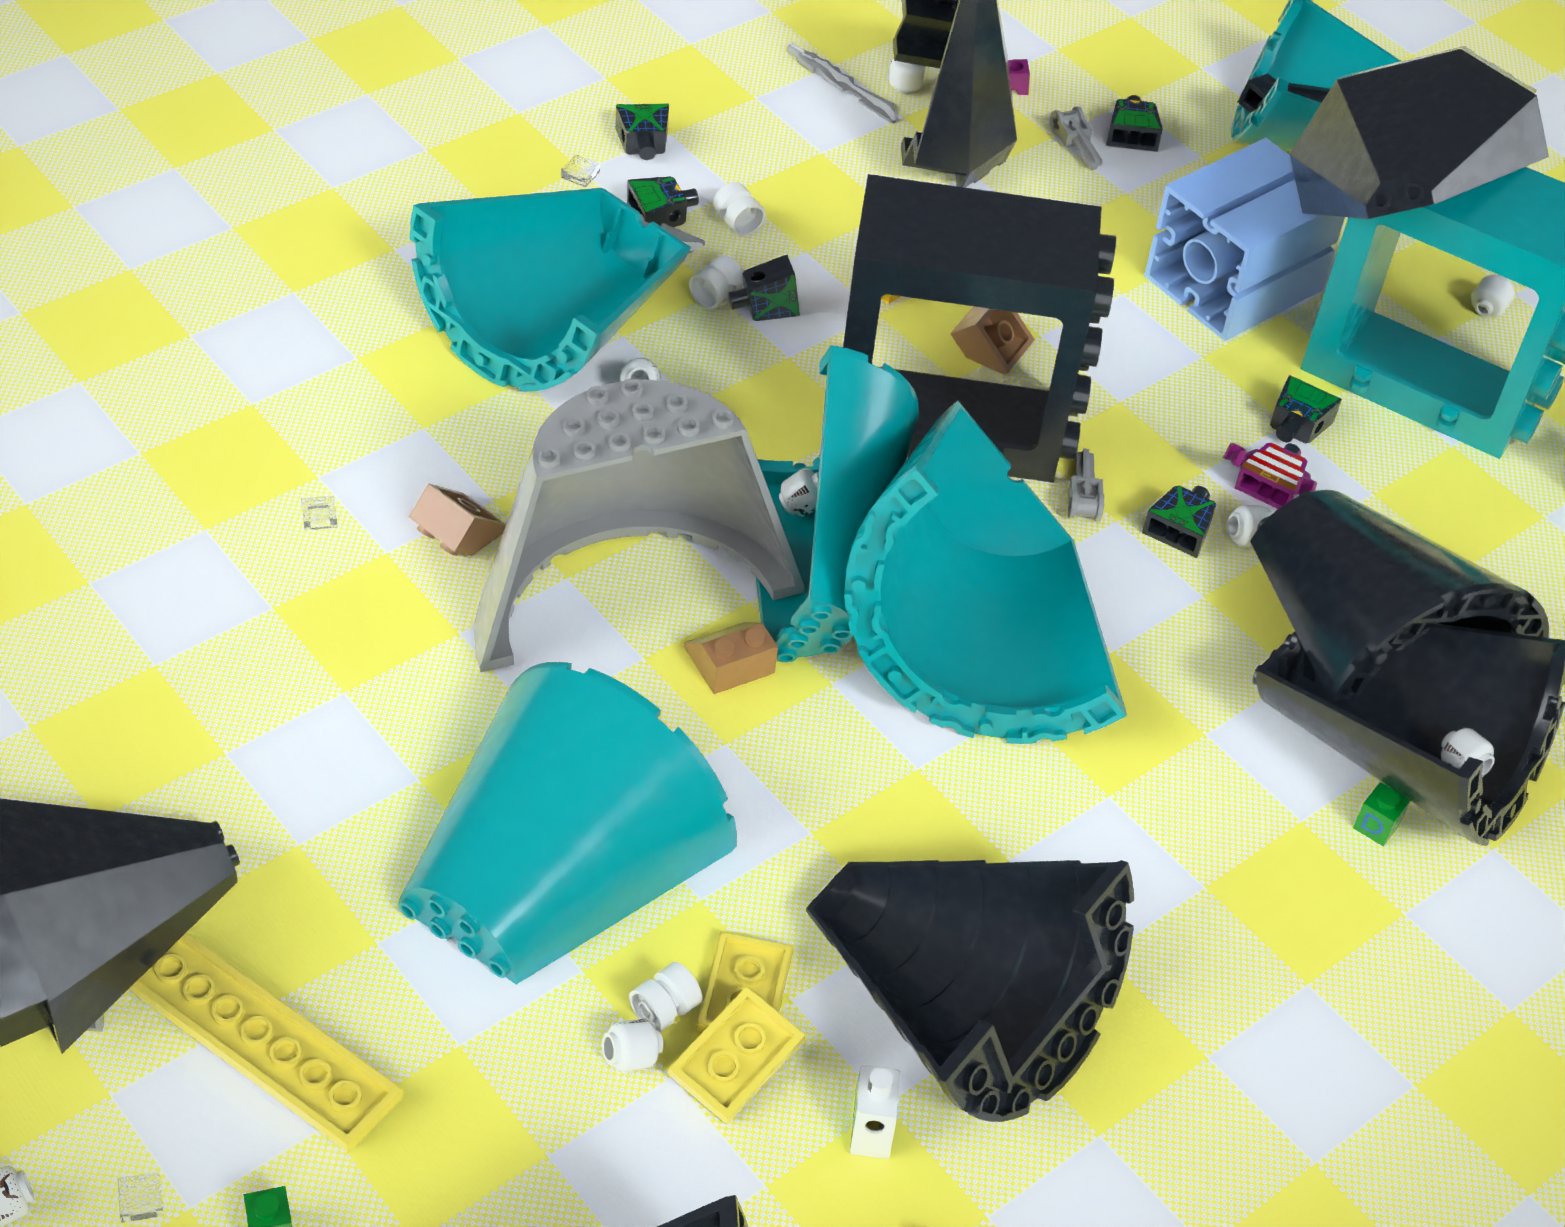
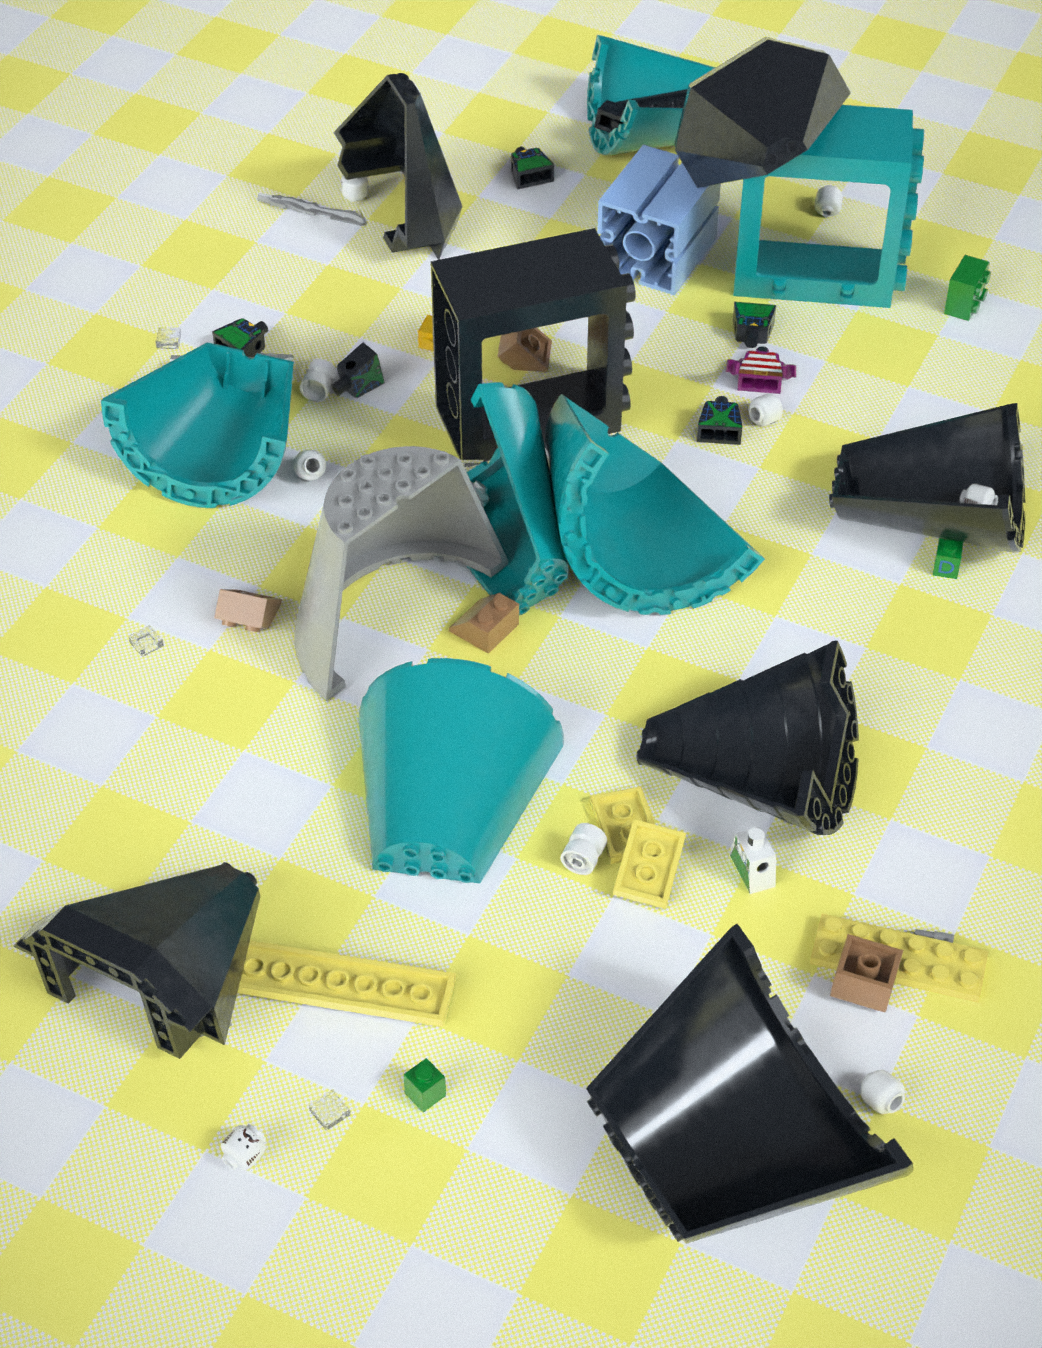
camera: 20 degrees left, 0 degrees up
(632, 1045) = (581, 886): white head -> none
(642, 128) = (195, 292): black torso -> none
(739, 209) = (300, 324): white wheel -> none
(1075, 131) = (493, 186): light grey connector -> none
(1085, 490) = (647, 429): light grey connector -> none
(1373, 585) = (873, 417): black cone -> none

